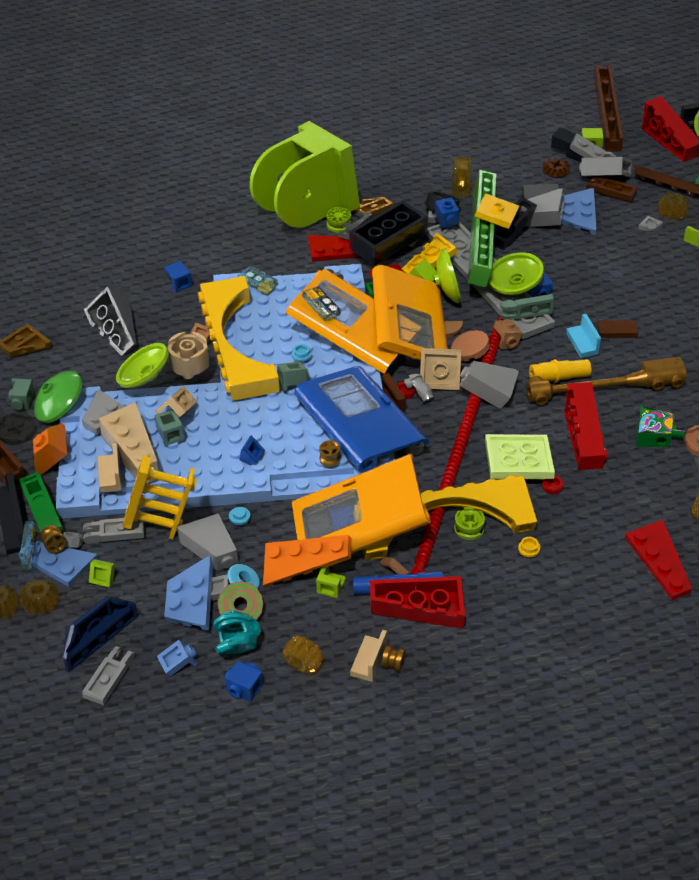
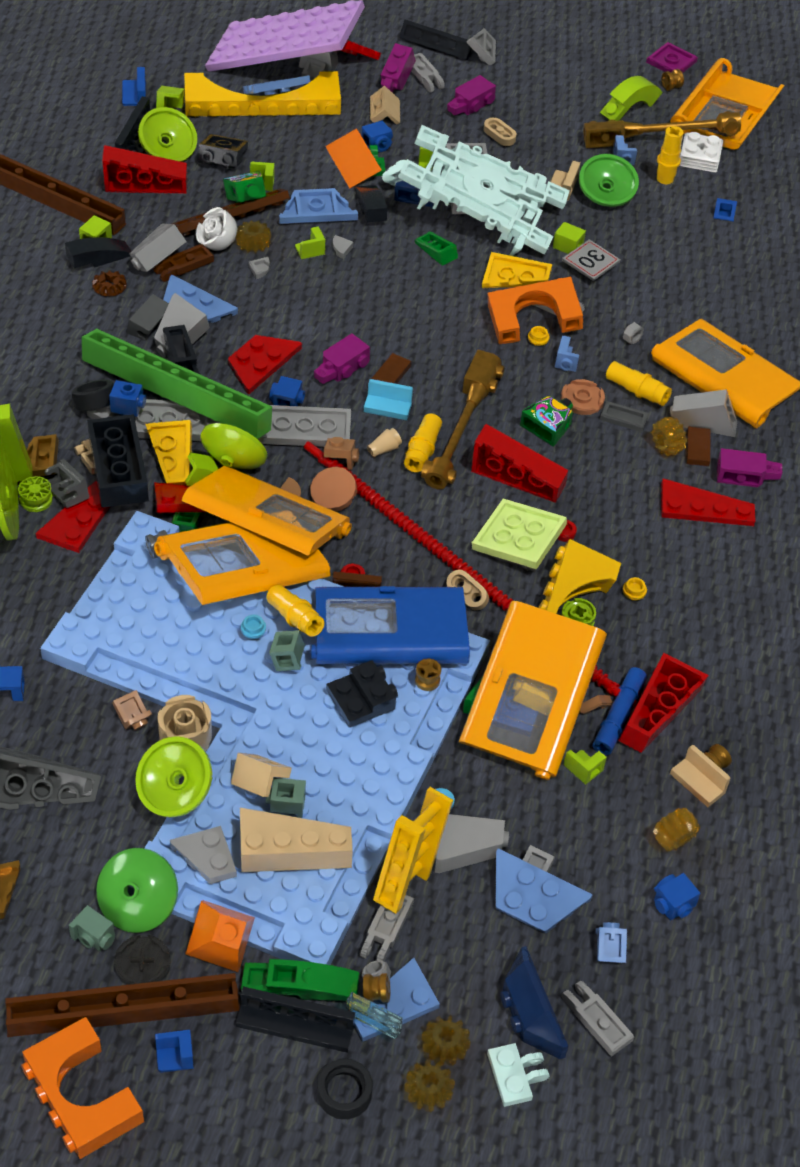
camera: 65 degrees left, 5 degrees up
(35, 645) = (510, 1073): none -> light aqua hinge
(101, 573) = (448, 963): lime tile -> none
(109, 471) = (314, 882): tan panel -> none
(237, 632) = (614, 870): teal helmet -> none
(243, 375) = (250, 694): yellow arch -> none
(243, 571) = (537, 835): medium azure piece -> none
(244, 591) = (587, 851): medium nougat tile -> none
(251, 451) = (373, 741): blue slope -> none
(258, 280) = (94, 609): clear light blue tile -> none
(287, 429) = (363, 693): none -> black plate
(301, 556) = (550, 773): orange wing -> none
(321, 303) = (221, 564): tile -> none
(323, 361) = (296, 611): none -> yellow piece
(422, 388) = (365, 558): light grey arm -> none
(440, 452) = (471, 589): none -> tan plate
(441, 368) = (359, 527): tan plate -> none
(461, 176) = (70, 357): clear yellow brick -> none
(489, 382) = (409, 500): light grey slope -> none
(497, 211) = (175, 357): yellow plate -> none
(516, 273) = (280, 386): lime dish -> none
(527, 307) = (323, 416): sand green hinge -> none
(543, 353) = (385, 442): none -> tan cone
(565, 262) = (260, 359): none -> red wing
(588, 149) = (118, 243): light grey hinge -> none
(598, 297) = (343, 359): none -> magenta hinge
(654, 186) = (217, 230): none -> white cylinder

